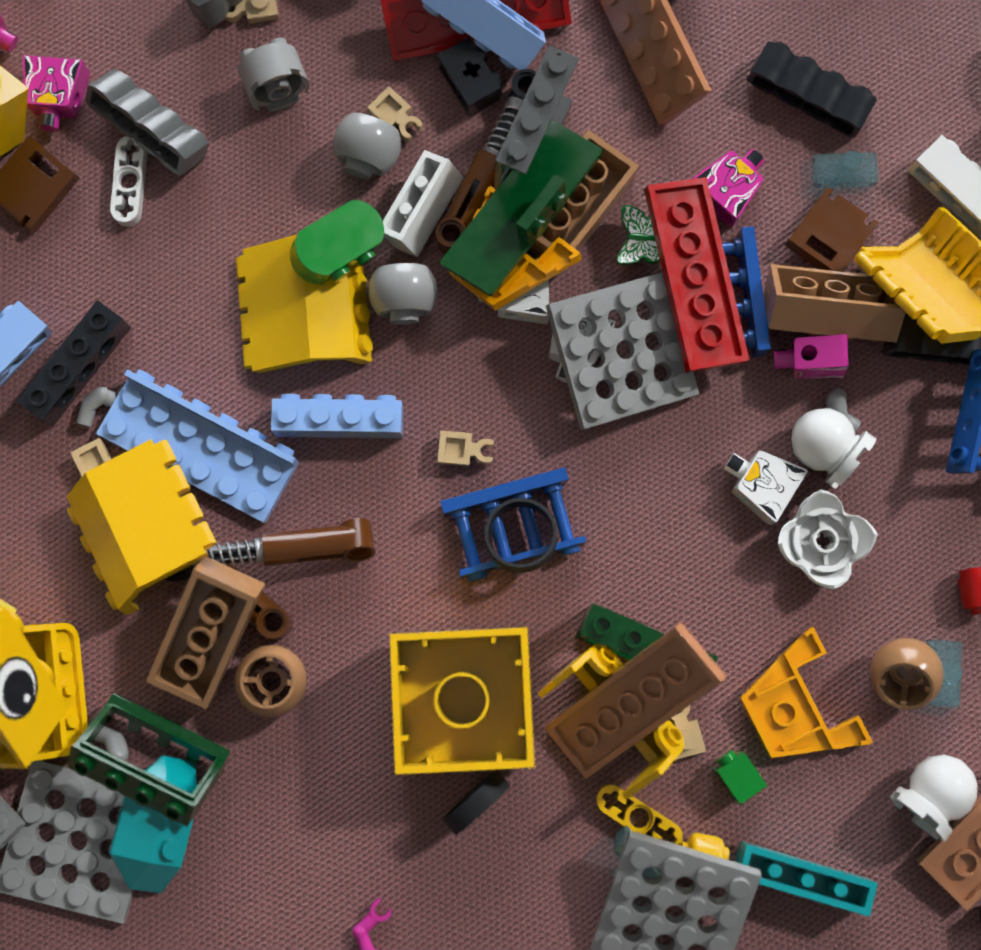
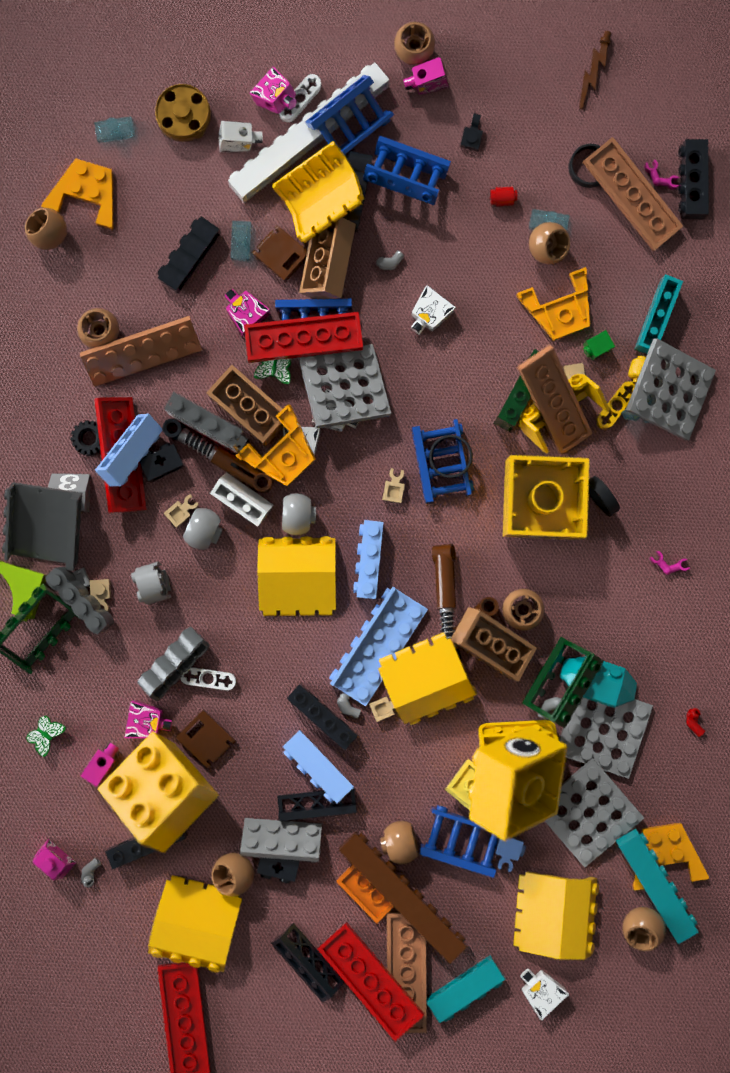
camera: 85 degrees left, 5 degrees up
(337, 243) = (266, 549): green brick -> none
(521, 210) = (259, 438): dark green bracket -> none
(828, 357) = (358, 265): dark pink torso -> none
(828, 443) = (411, 271): white tile -> none
(848, 534) = (468, 266): white brick -> none
(938, 793) = (617, 233): white tile -> none

